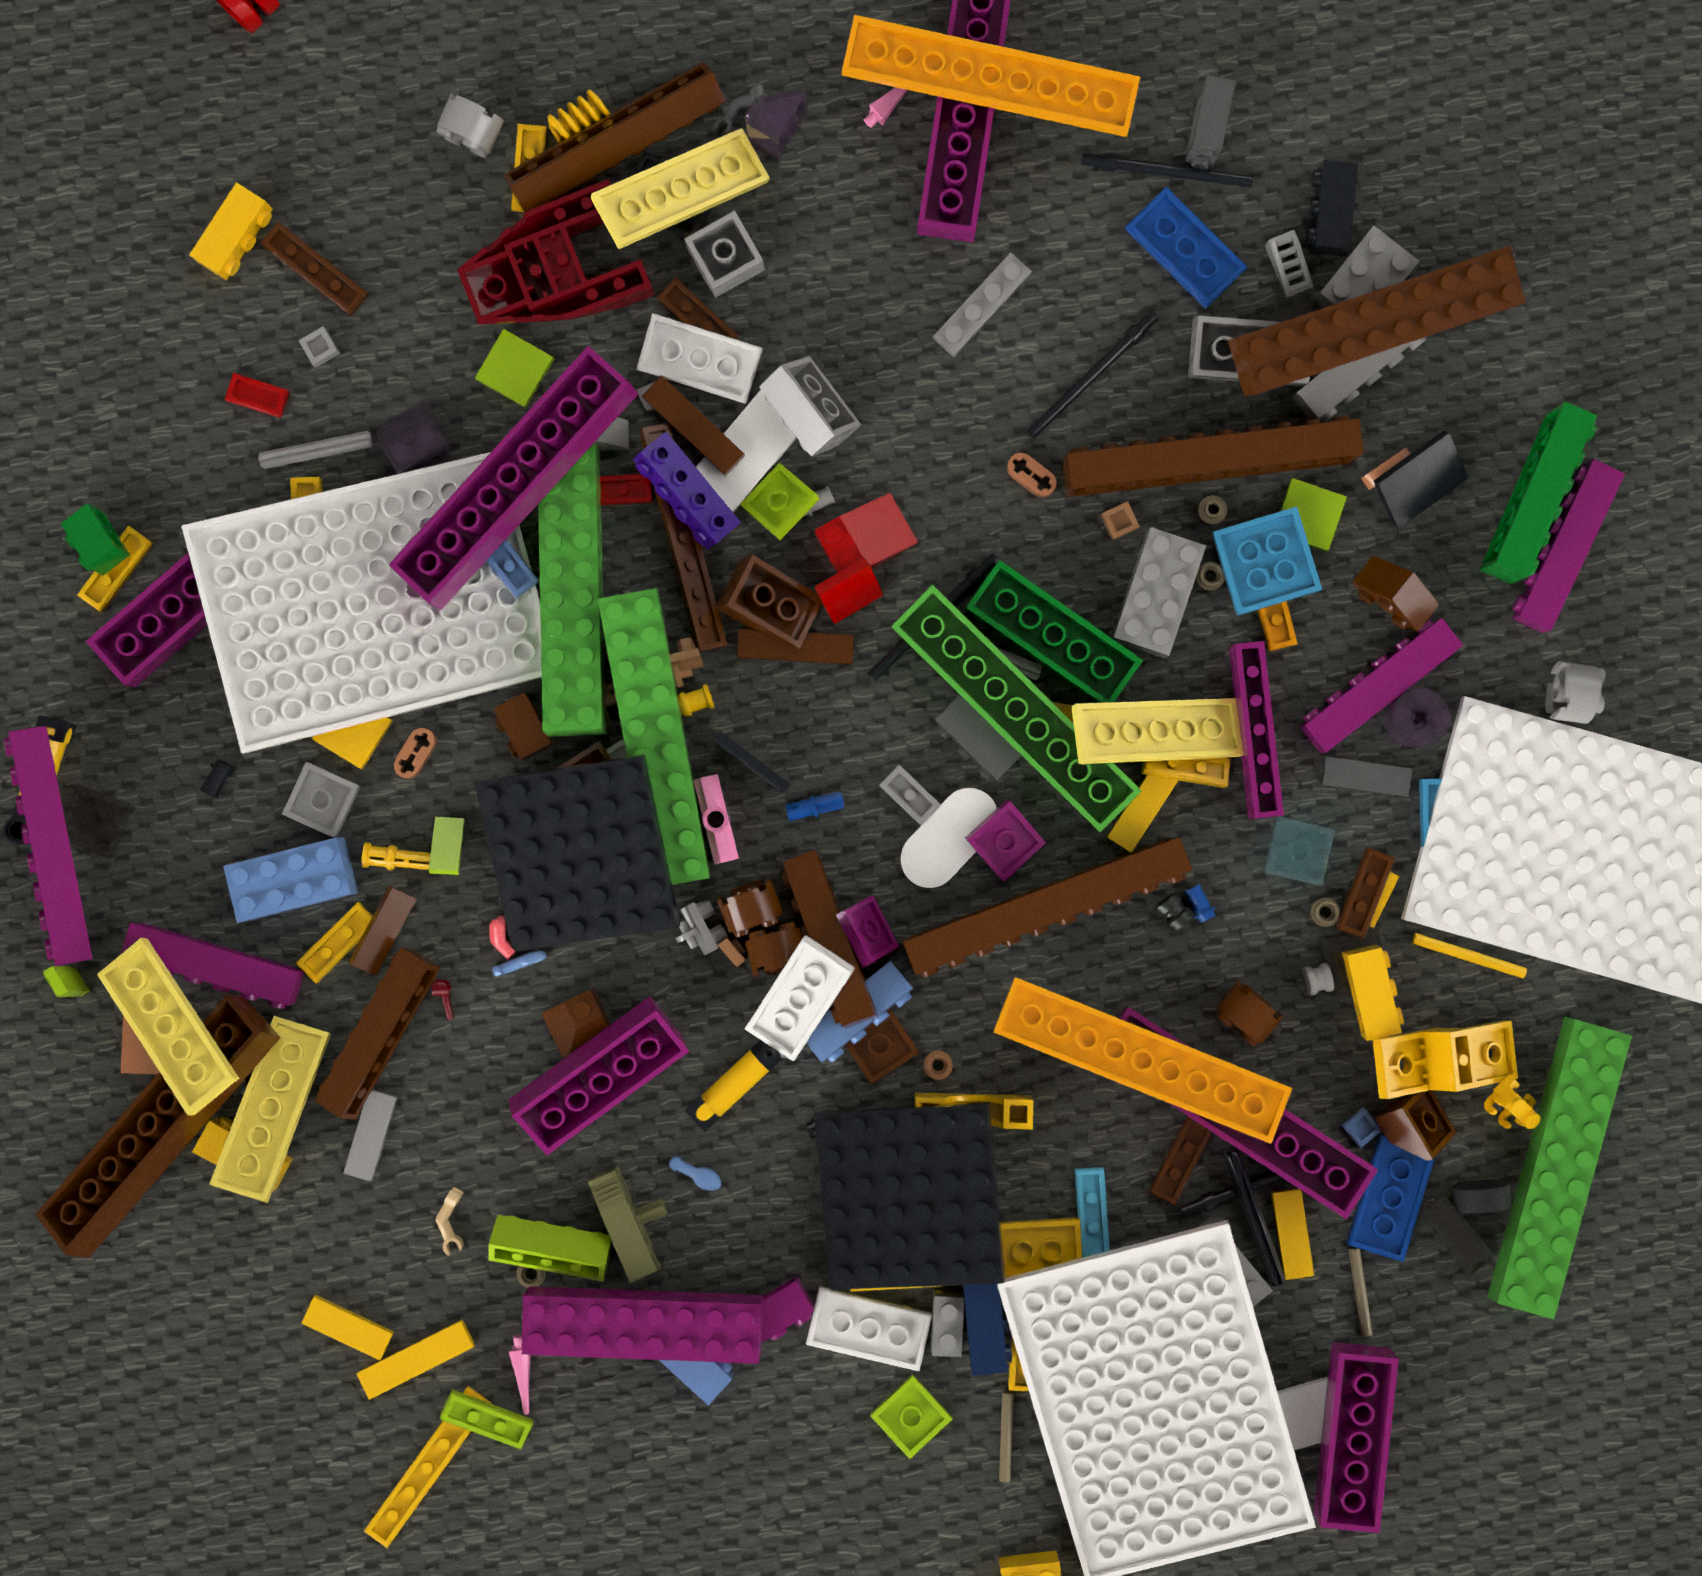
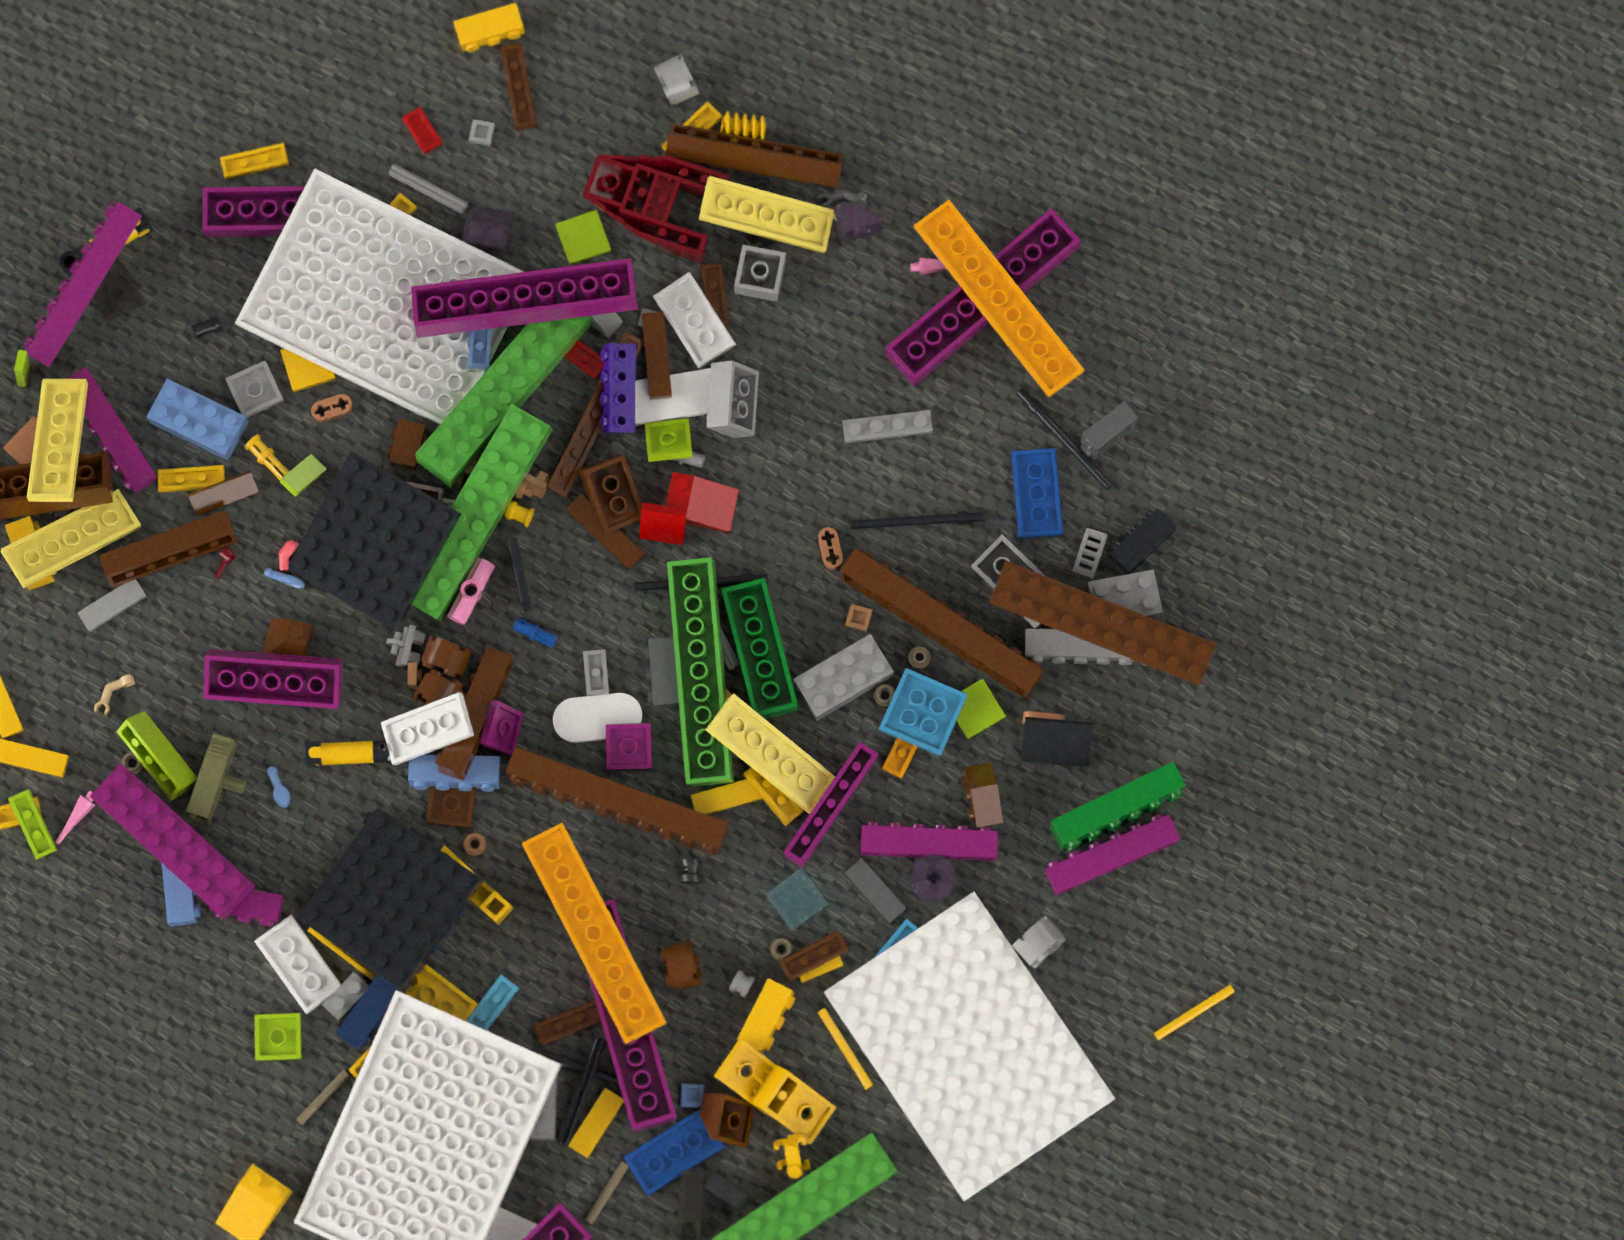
camera: 40 degrees right, 10 degrees down
(94, 539) = (258, 135): green brick -> none
(1199, 903) = (711, 880): blue pin -> none

